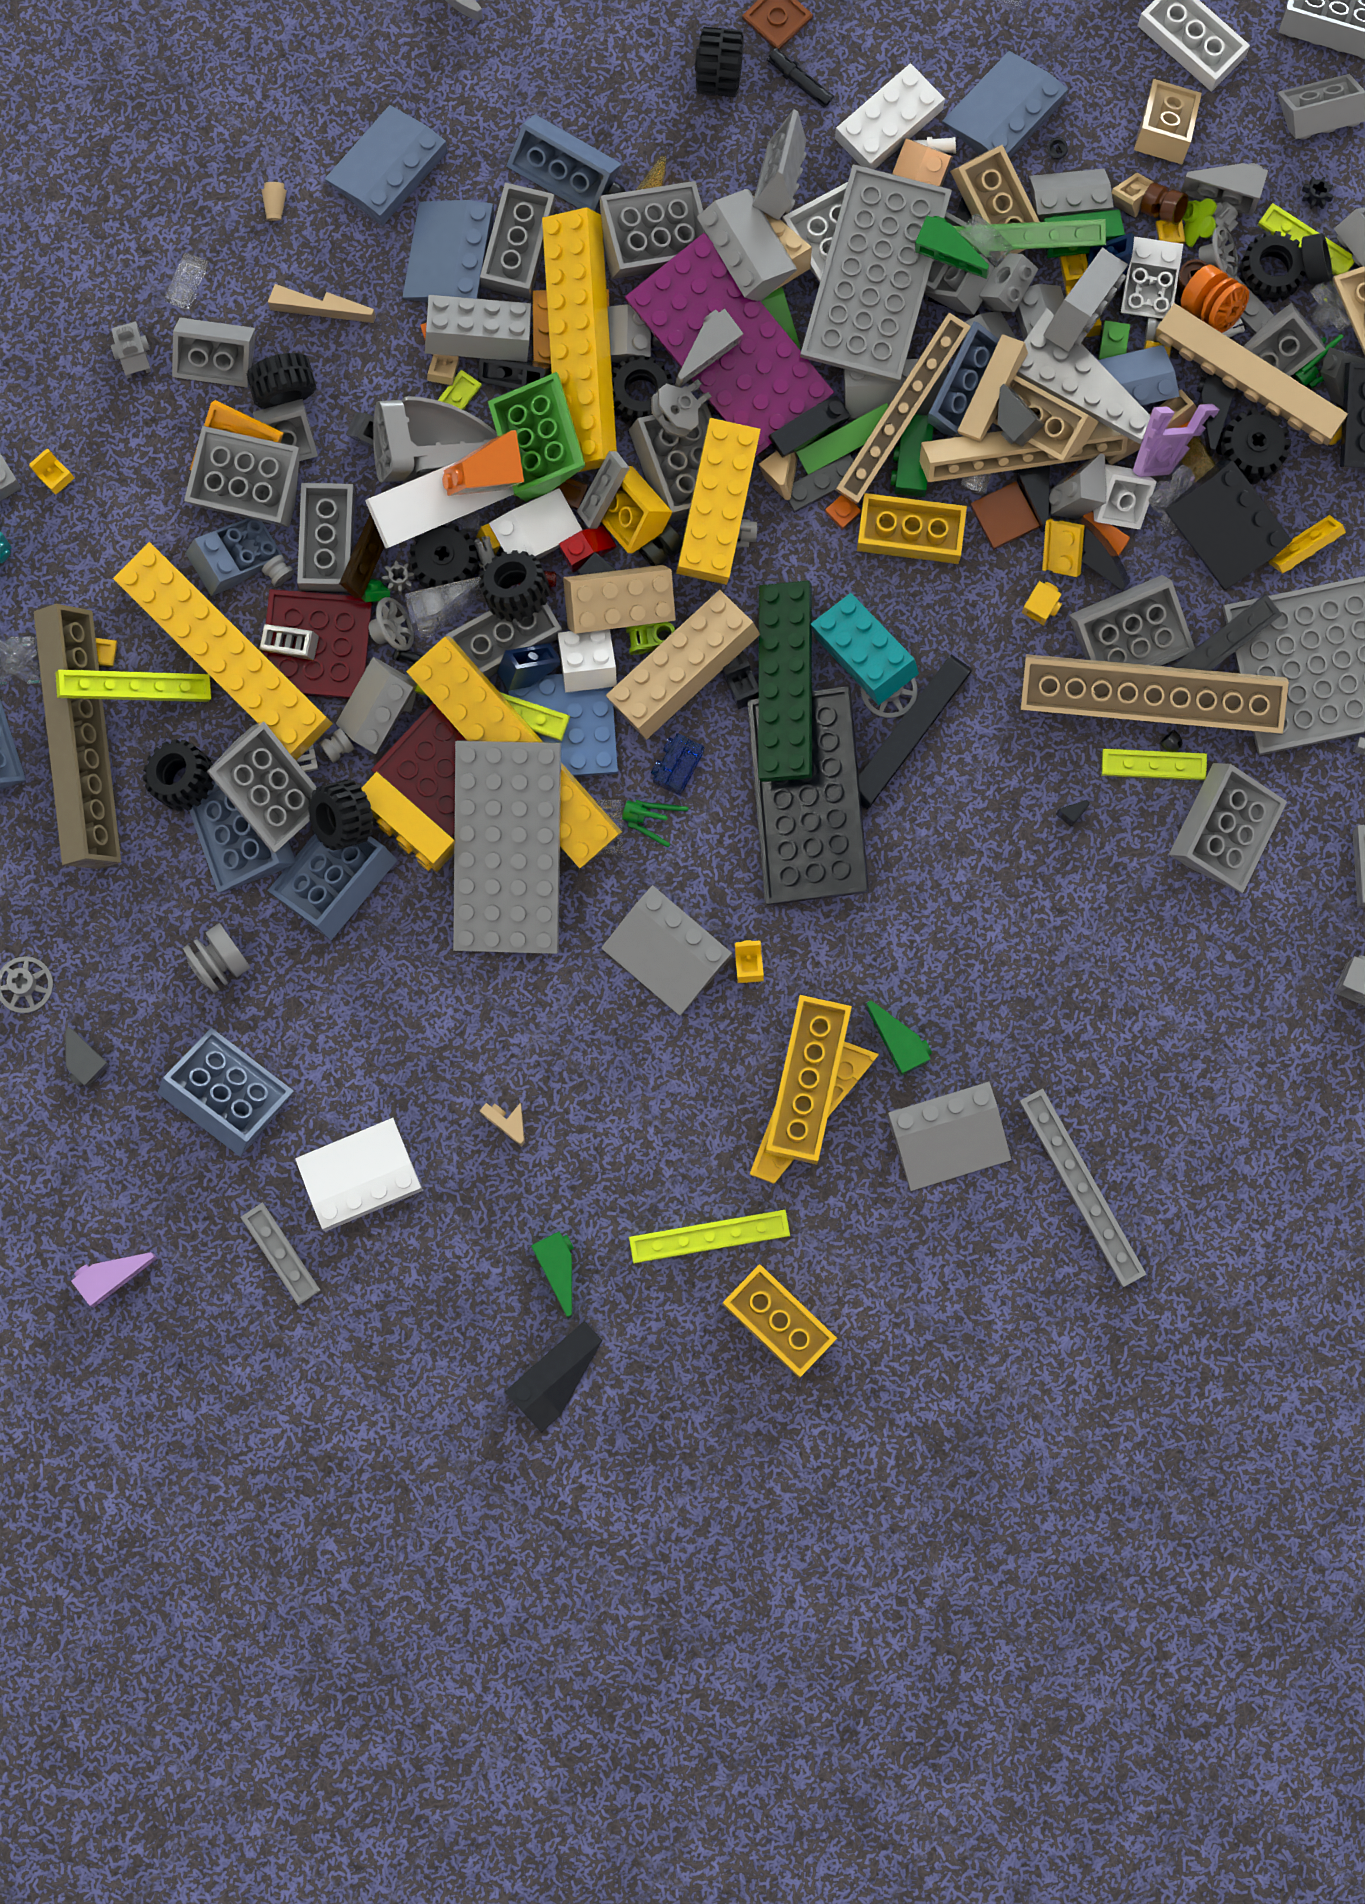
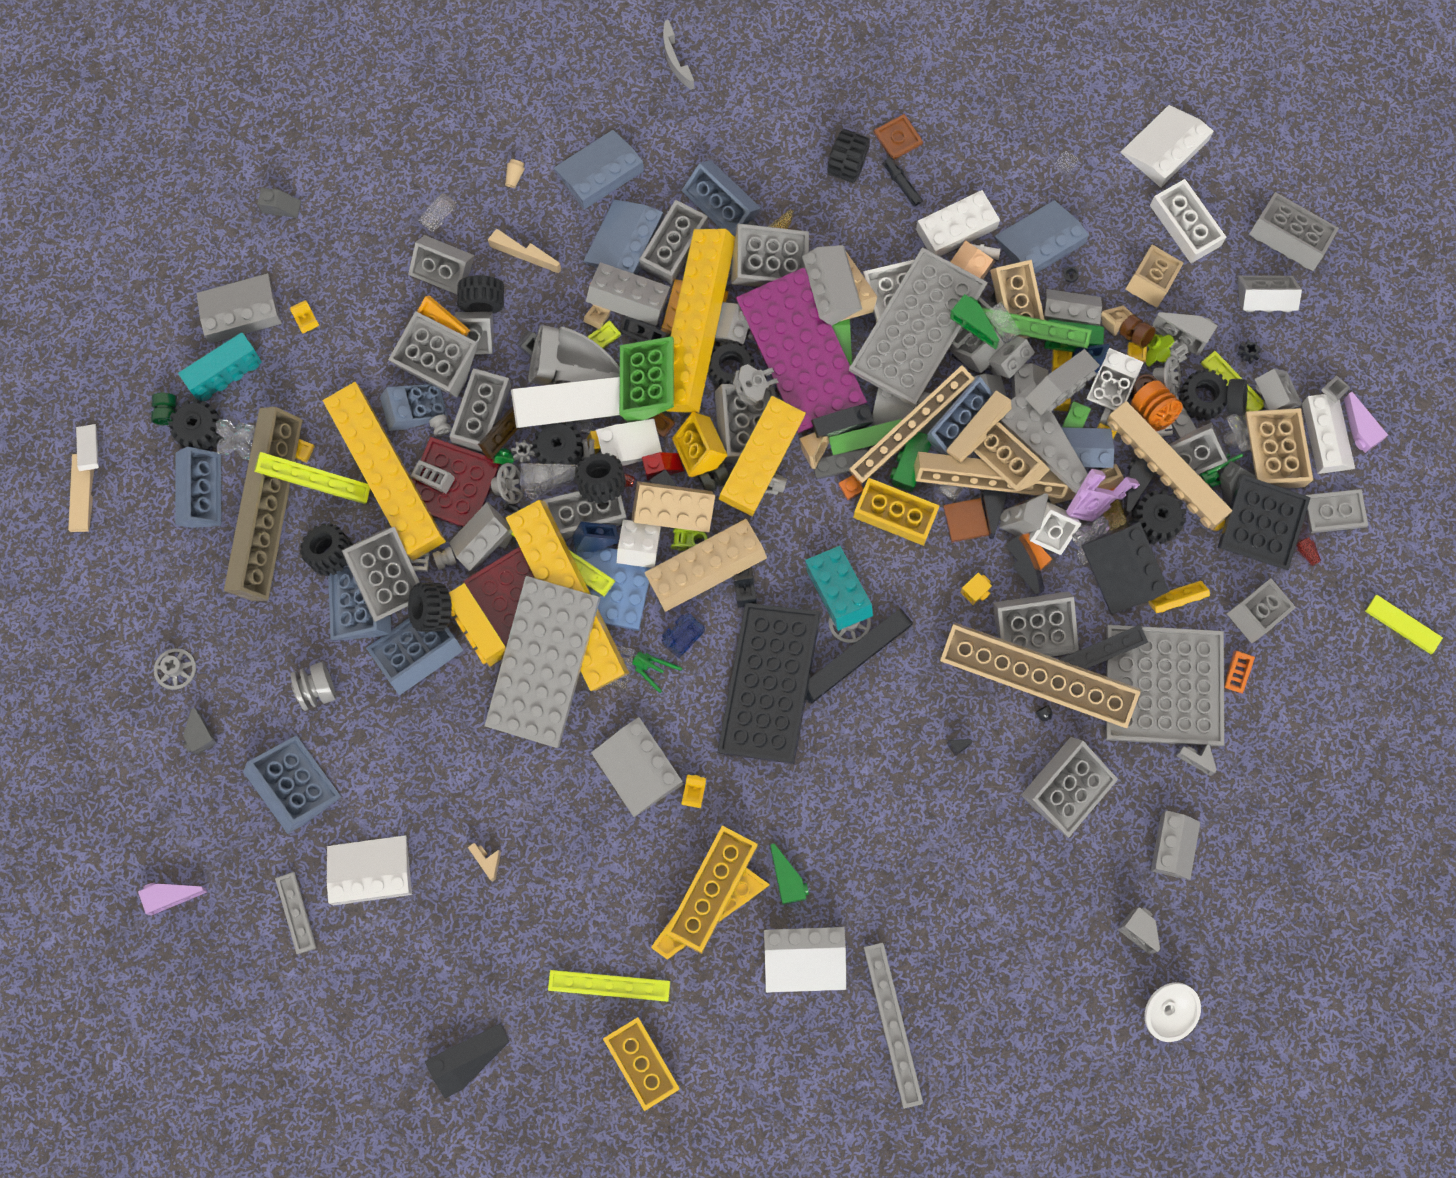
camera: 15 degrees right, 5 degrees down
(130, 348) = (384, 247): light grey hinge -> none
(486, 469) = (603, 391): orange slope -> none
(556, 1263) = (491, 974): green slope -> none
(603, 489) = (683, 427): light grey plate -> none
(714, 340) = (788, 343): light grey slope -> none
(781, 168) = (871, 238): light grey slope -> none
(785, 681) = (775, 597): dark green plate -> none
(1016, 417) = (990, 451): dark grey slope -> none
(1063, 547) = (1001, 553): yellow plate -> none
(1154, 764) = (1027, 726): neon yellow tile -> none

